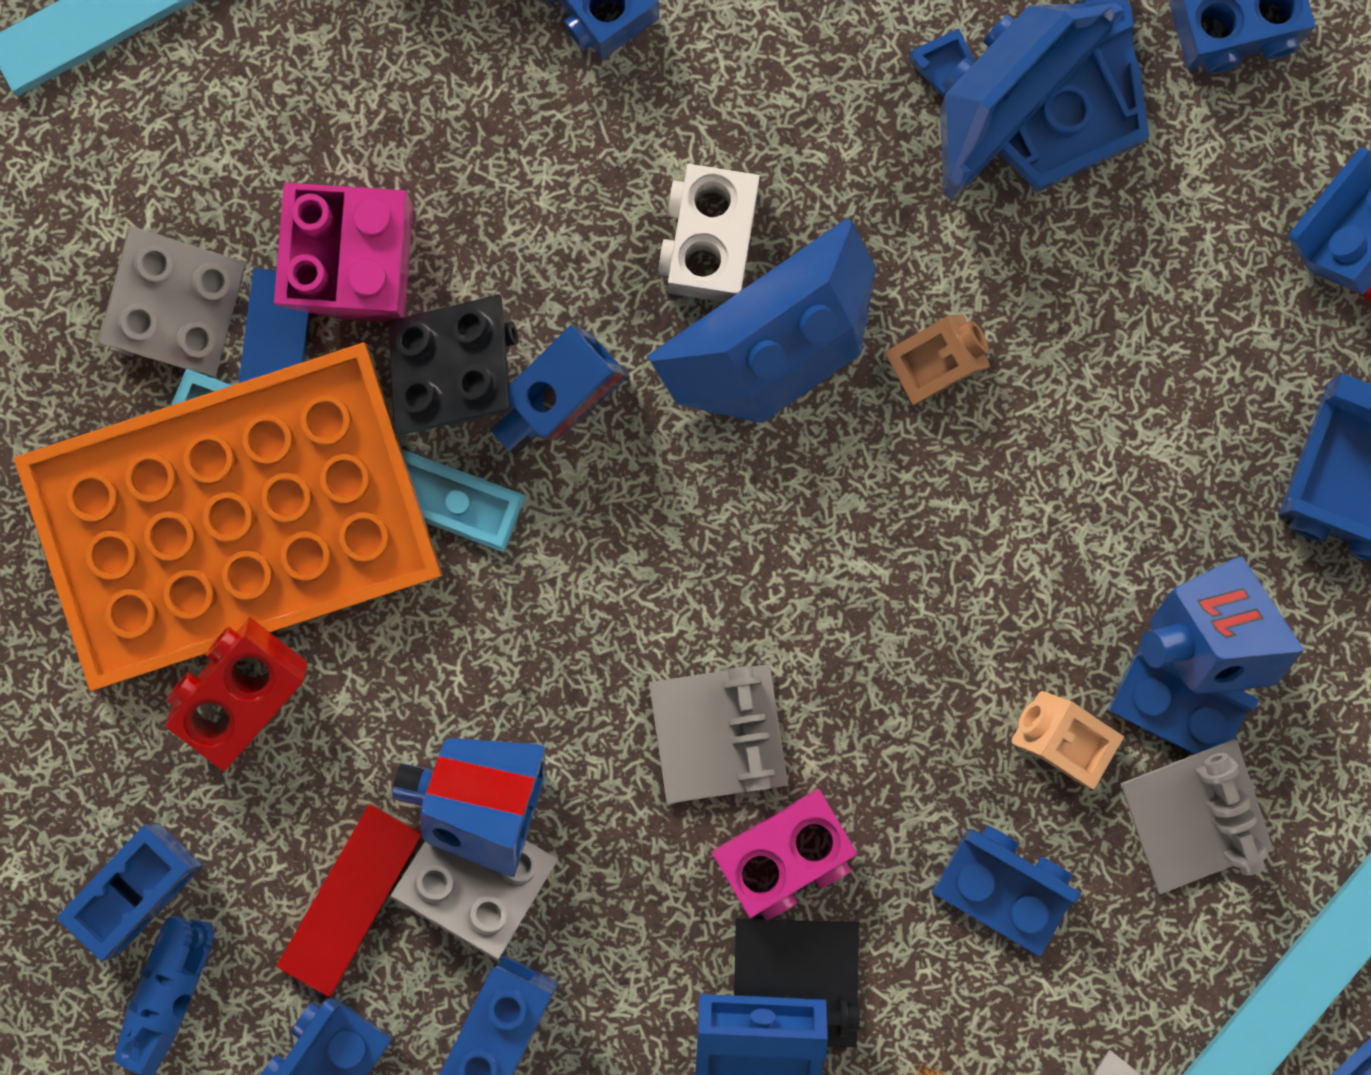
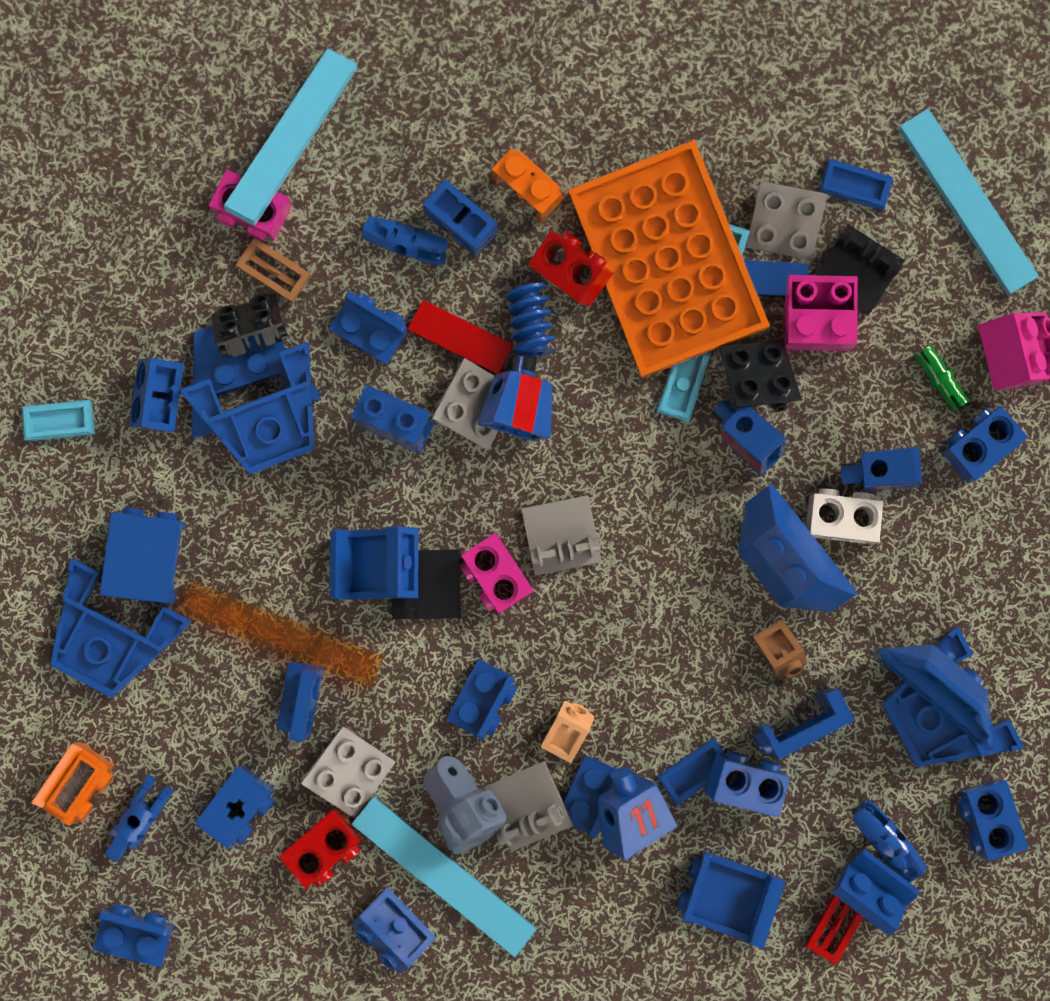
camera: 85 degrees right, 0 degrees up
(72, 763) = (528, 182): none -> orange window
(114, 176) = (856, 184): none -> blue tile
(249, 171) = (862, 257): none -> black hinge
(326, 772) = (529, 320): none -> blue piece
(471, 50) = (941, 378): none -> green pin
(631, 129) = (901, 468): none -> blue torso
(1085, 317) = (835, 716): none -> blue panel
(1143, 519) = (690, 773): none -> blue tile
(1184, 435) = (745, 791): none -> blue brick
(1204, 930) = (466, 813): none -> sand blue piece
(1273, 193) = (889, 841): none -> blue hinge

